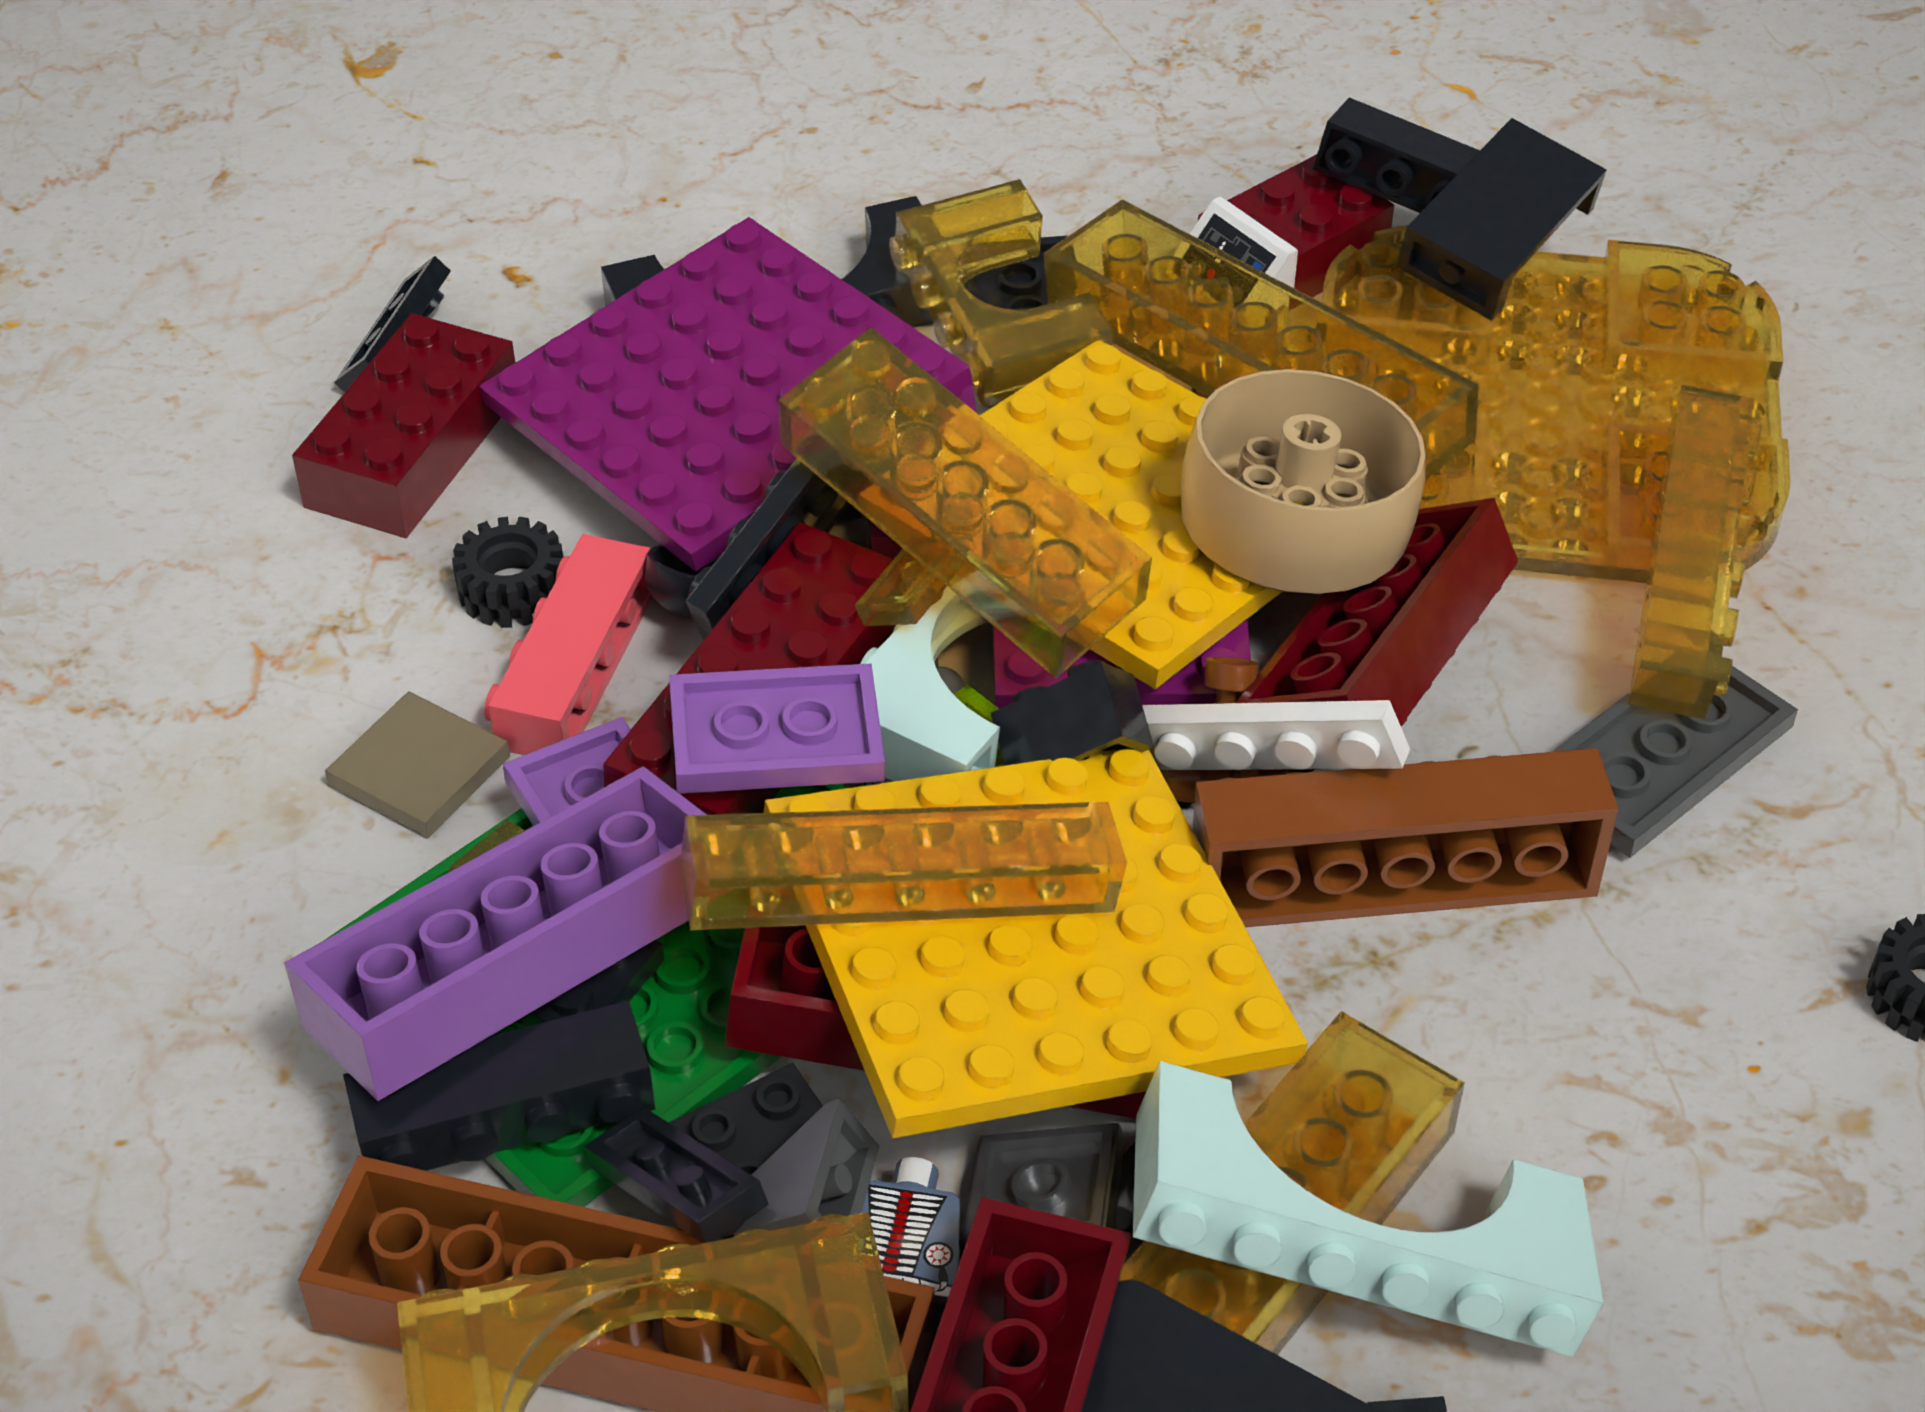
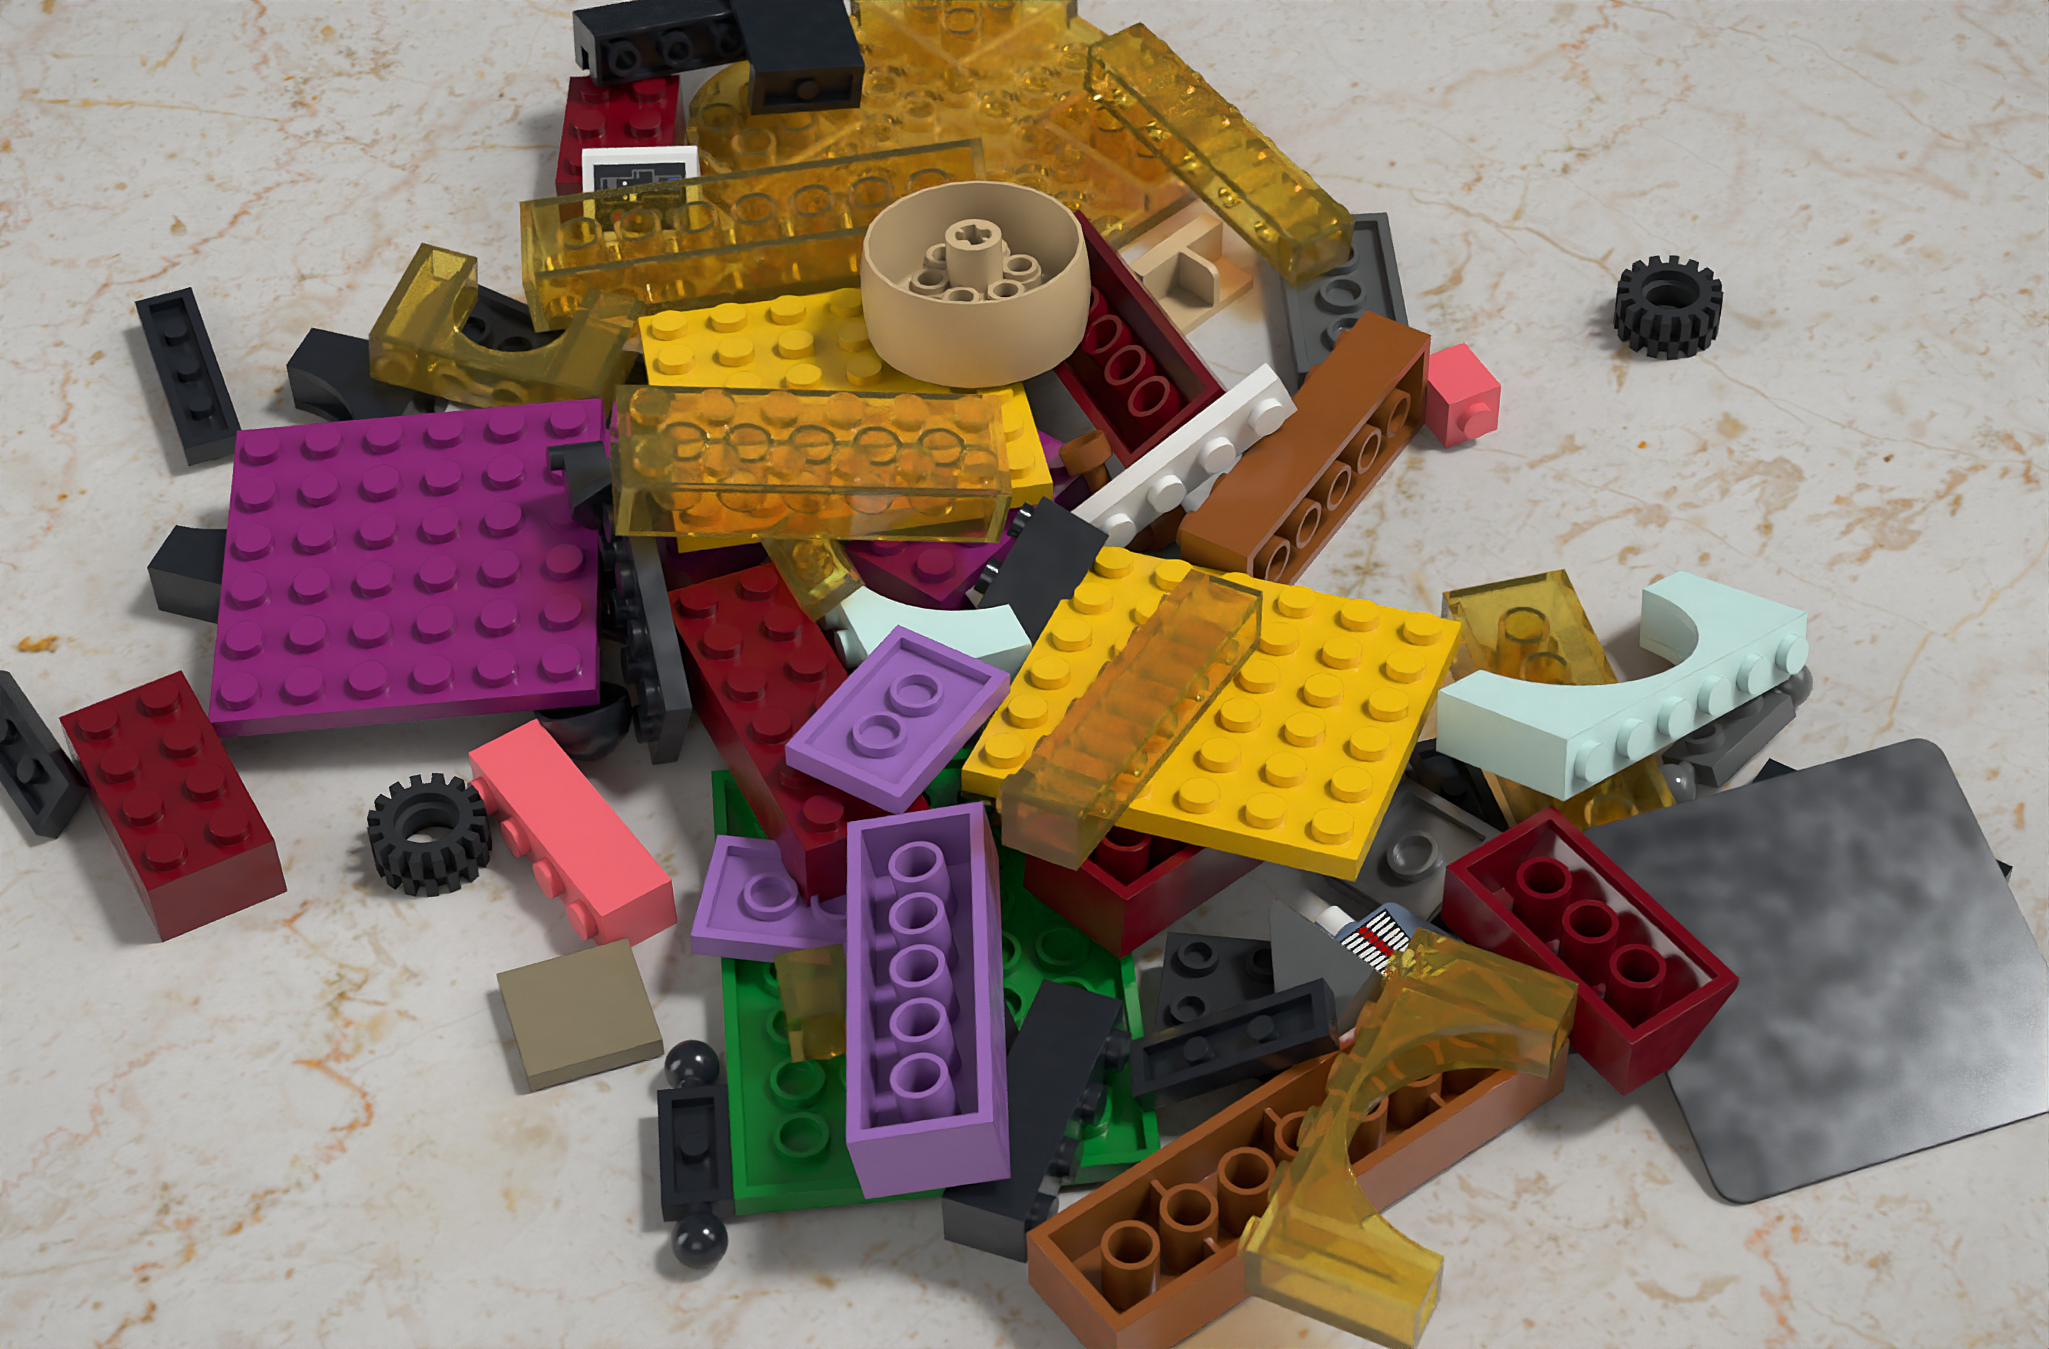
camera: 50 degrees left, 0 degrees up
(323, 910) = (695, 1154): none -> black plate
(829, 175) = (189, 375): none -> black plate
(1427, 1349) = (1730, 741): none -> dark grey plate
(1566, 632) = (1191, 274): none -> tan panel
(1634, 890) = (1460, 396): none -> coral brick

